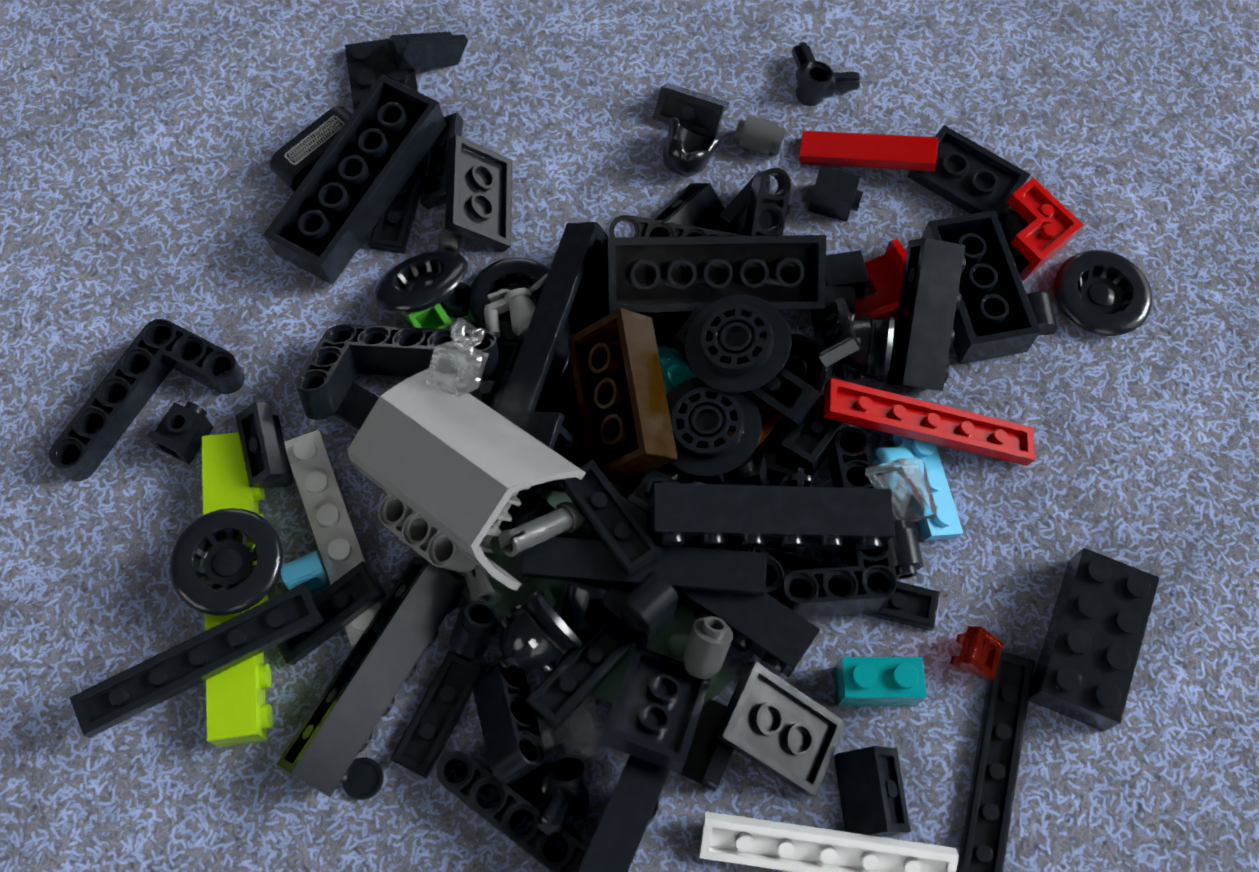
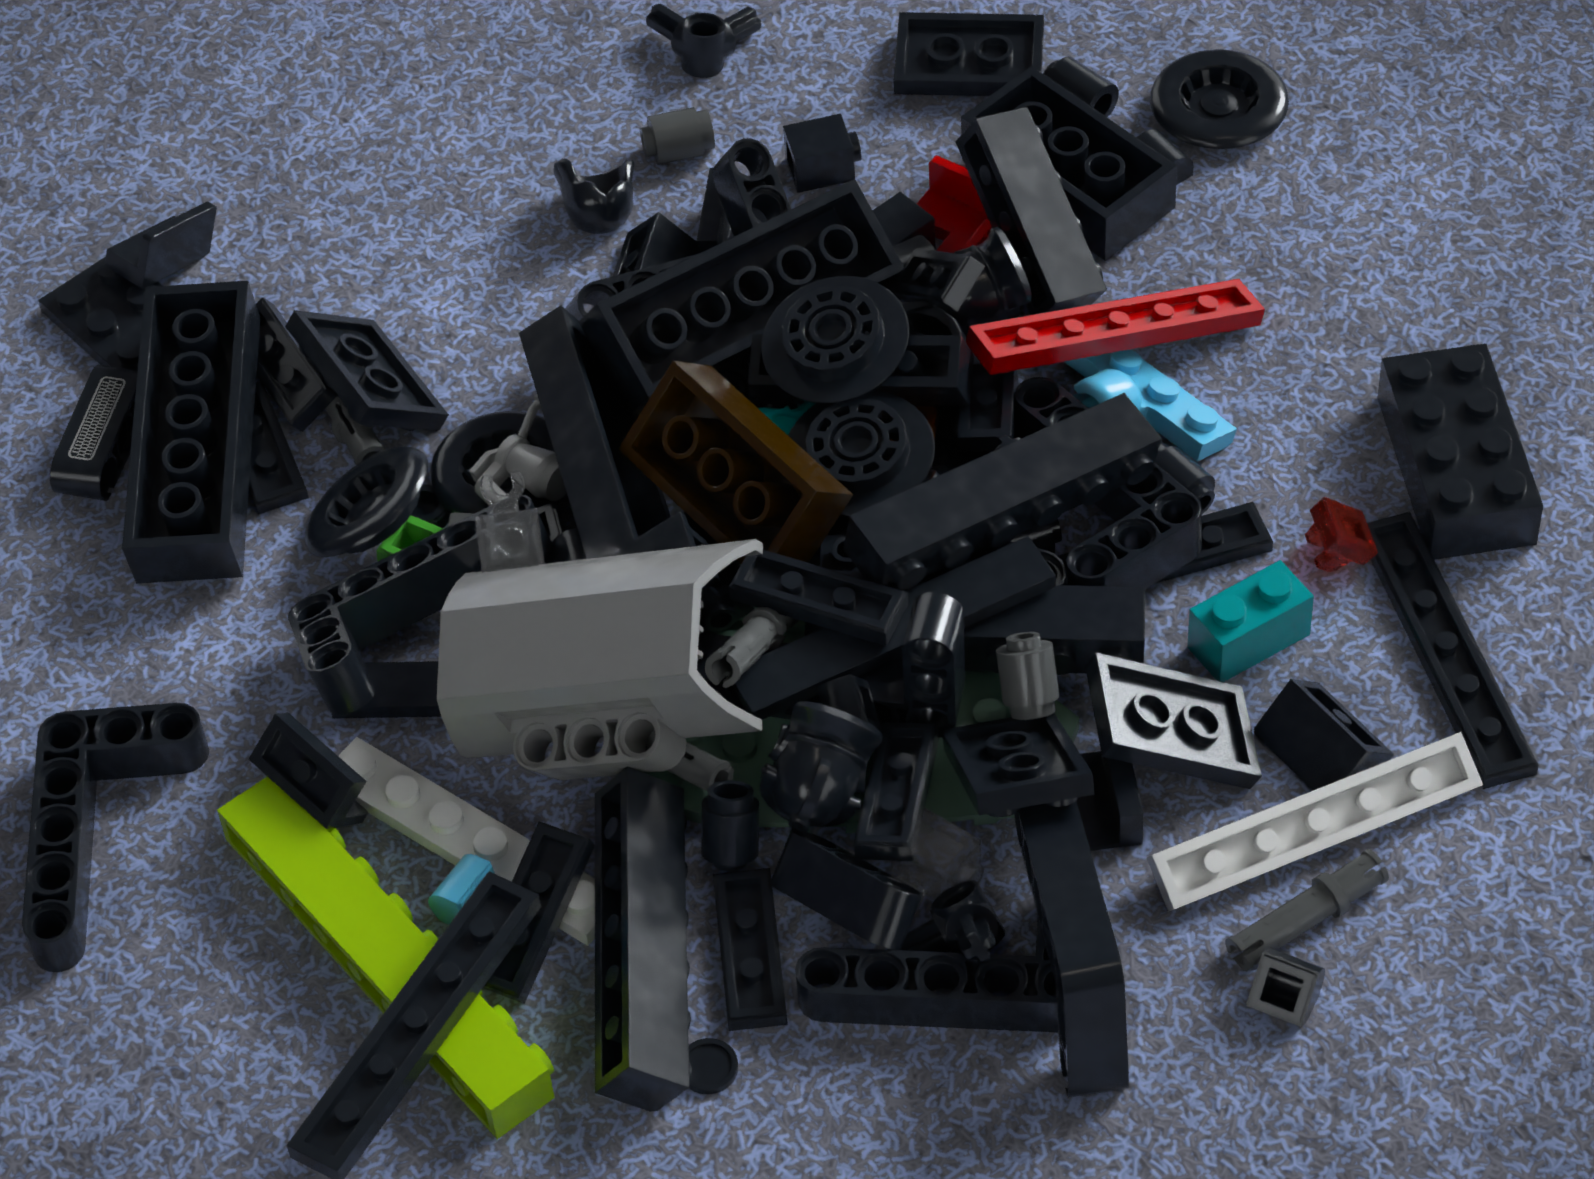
camera: 25 degrees left, 15 degrees down
(179, 440) = (173, 823): black brick -> none
(227, 563) = (371, 924): black wheel -> none
(695, 110) = (587, 146): black panel -> none
(868, 150) = (827, 84): red tile -> none
(909, 487) = (1151, 400): clear slope -> none
(1049, 225) = (1107, 56): red panel -> none

